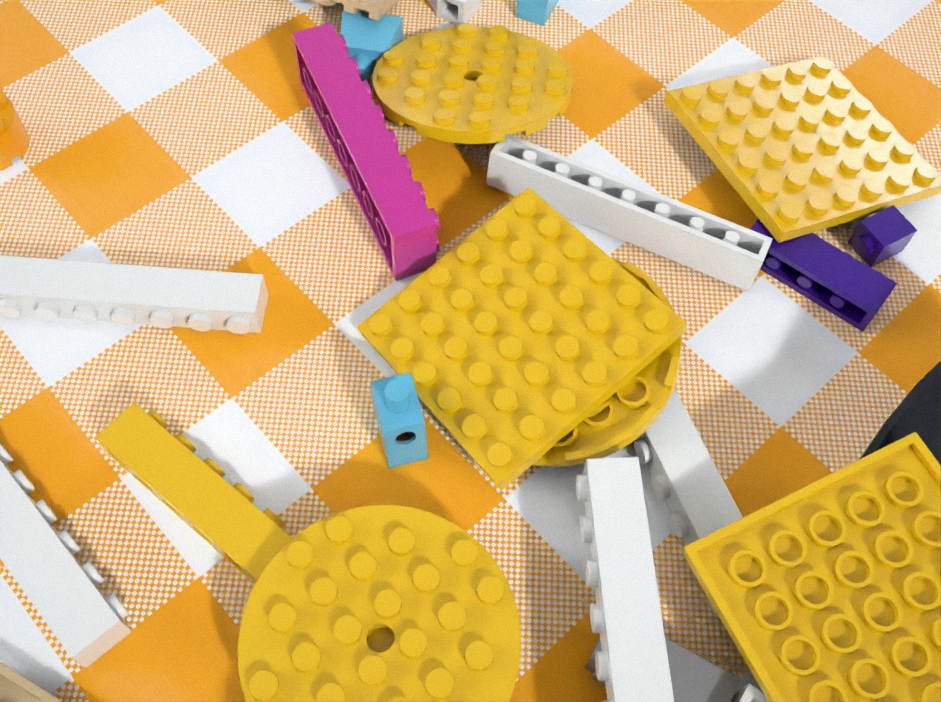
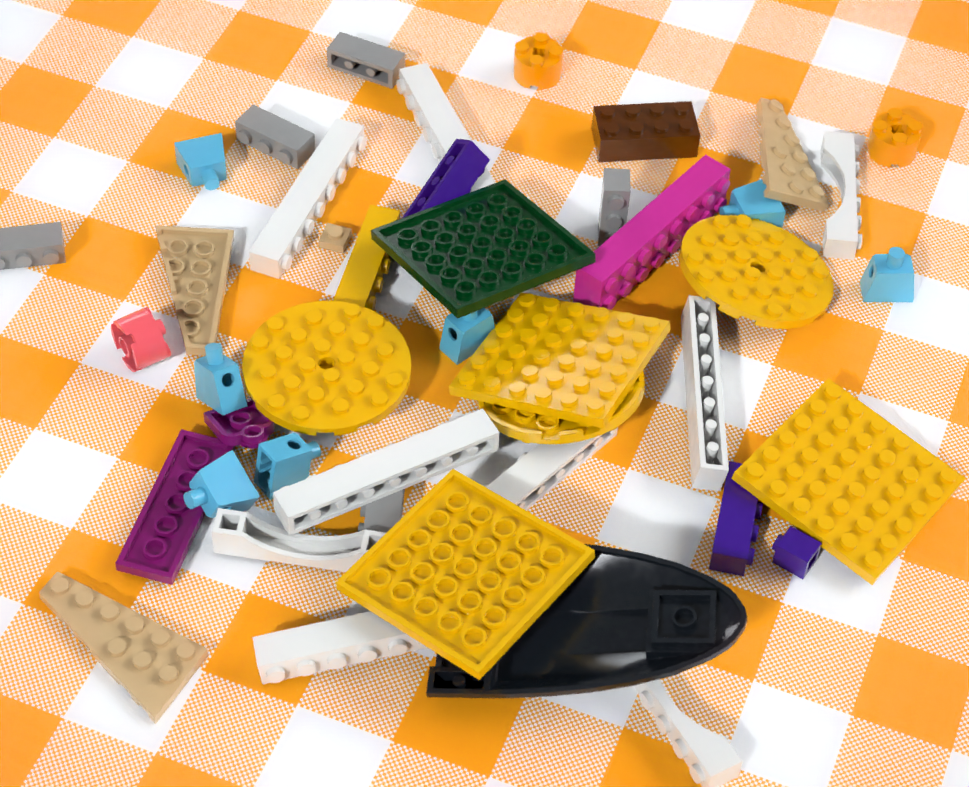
camera: 65 degrees right, 10 degrees down
(109, 514) = (335, 238): none -> tan plate
(145, 328) = (452, 176): none -> dark purple brick
(183, 84) = (645, 131): none -> reddish brown brick
(296, 335) = (482, 247): none -> dark green plate
(305, 157) = (613, 202): none -> light grey brick

